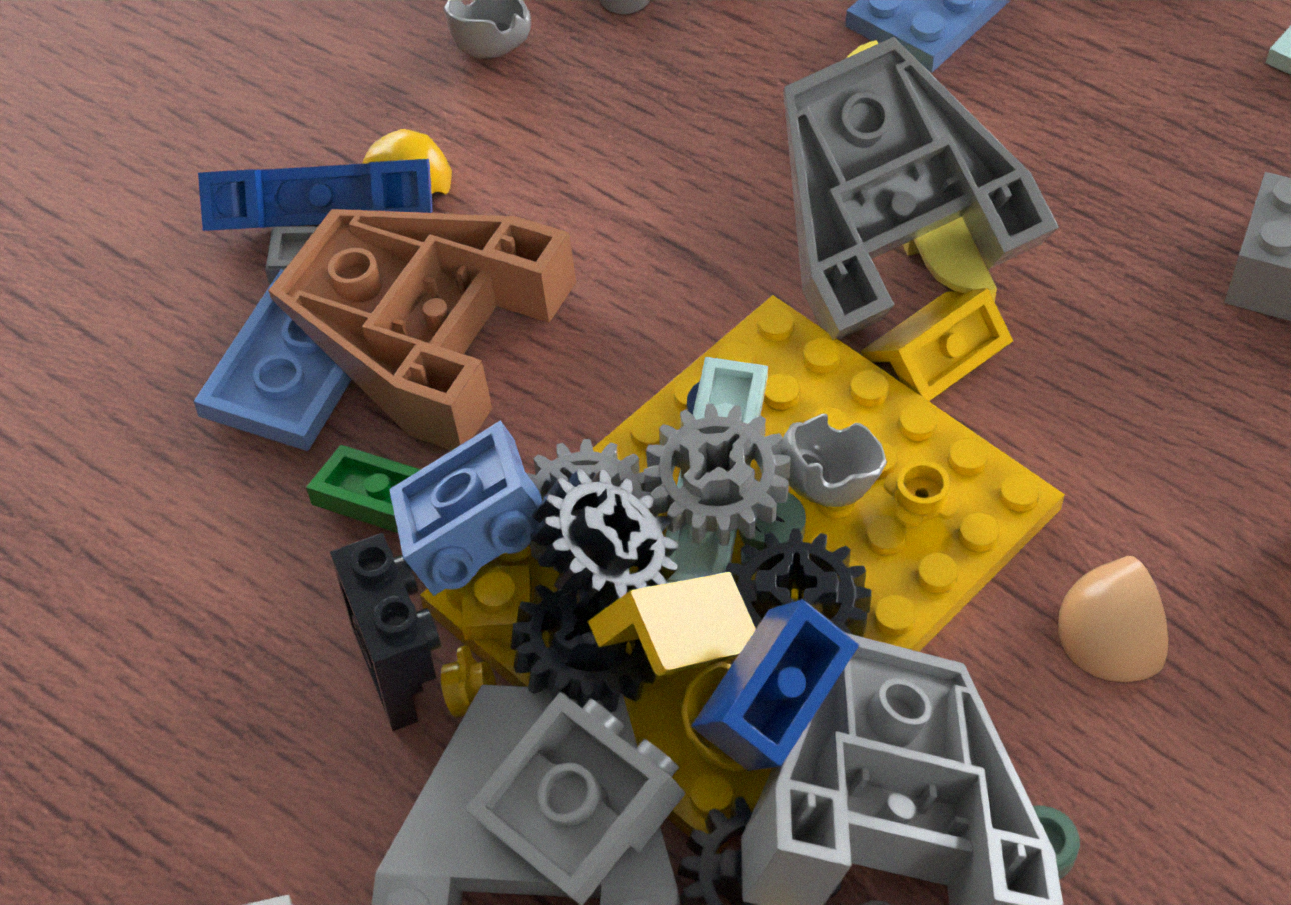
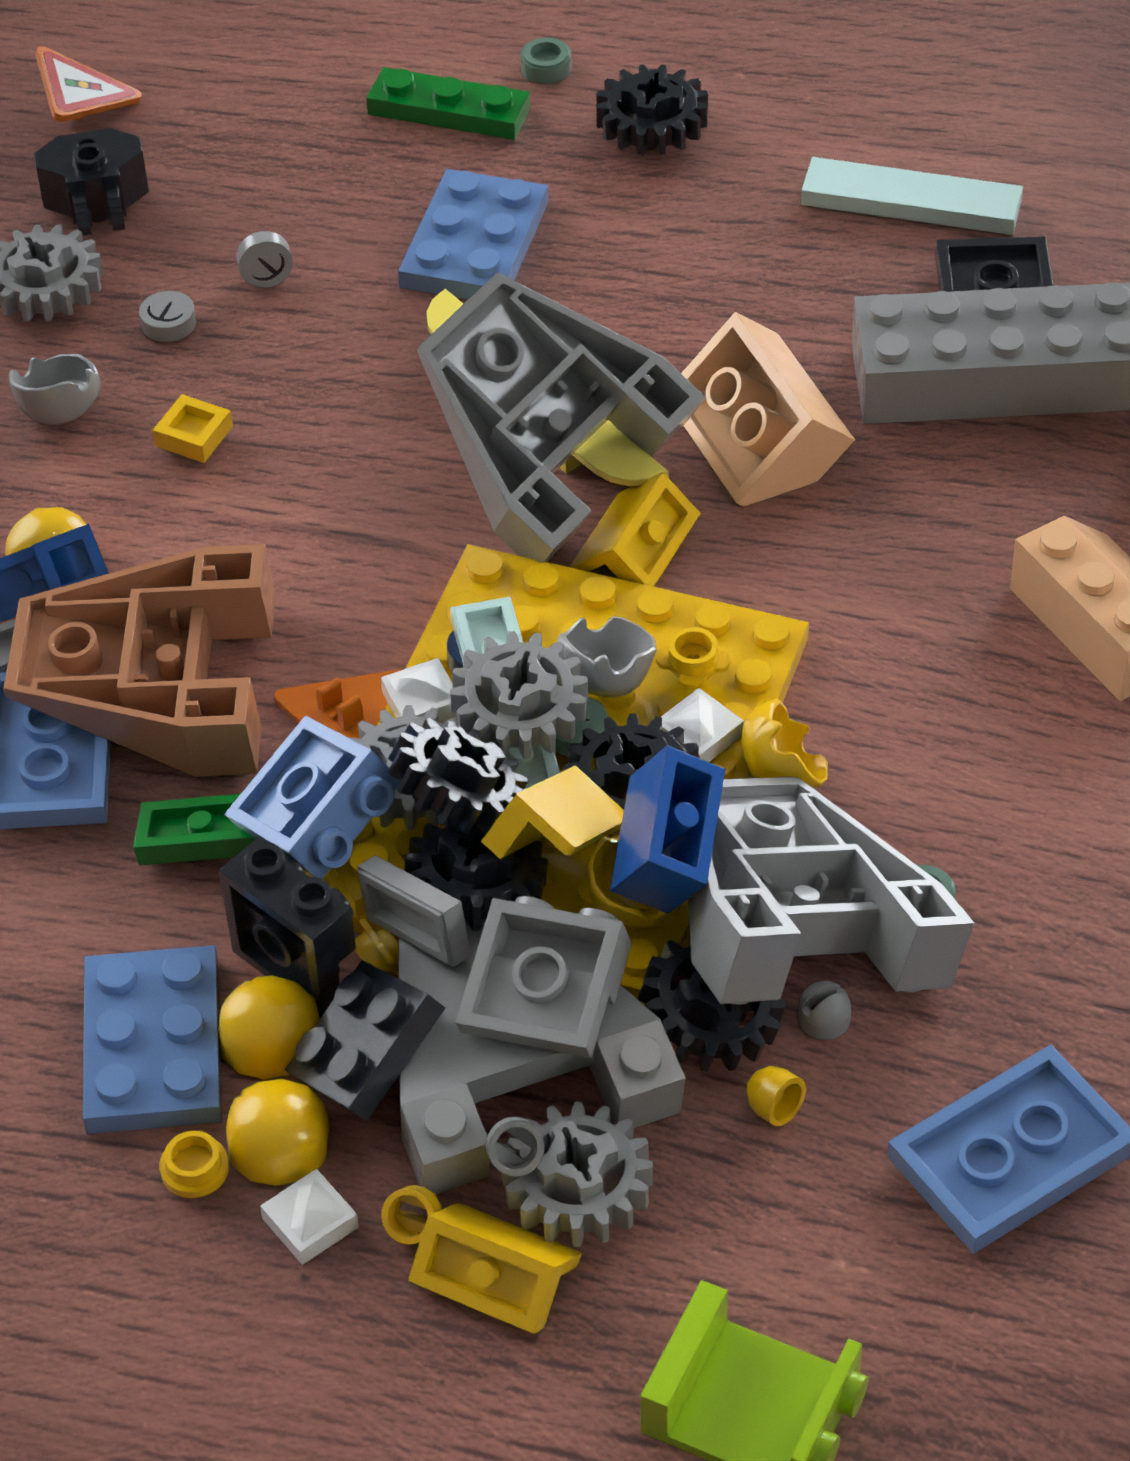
camera: 25 degrees left, 5 degrees down
(185, 838) = (193, 1164): none -> yellow plate
(224, 688) = (151, 1040): none -> medium blue plate
(278, 836) = (277, 1132): none -> yellow hair
(330, 719) = (264, 1025): none -> yellow hair
(389, 781) = (364, 1039): none -> black plate
(499, 665) = (414, 911): none -> light grey tile
(575, 412) = (337, 702): none -> orange piece
(586, 99) = (192, 428): none -> yellow plate
(637, 426) = (422, 687): none -> white tile
(894, 570) = (704, 723): none -> white tile
(962, 624) = (775, 746): none -> yellow hair
(1115, 622) = (901, 705): light nougat helmet -> none
(1119, 259) = (761, 414): none -> light nougat slope

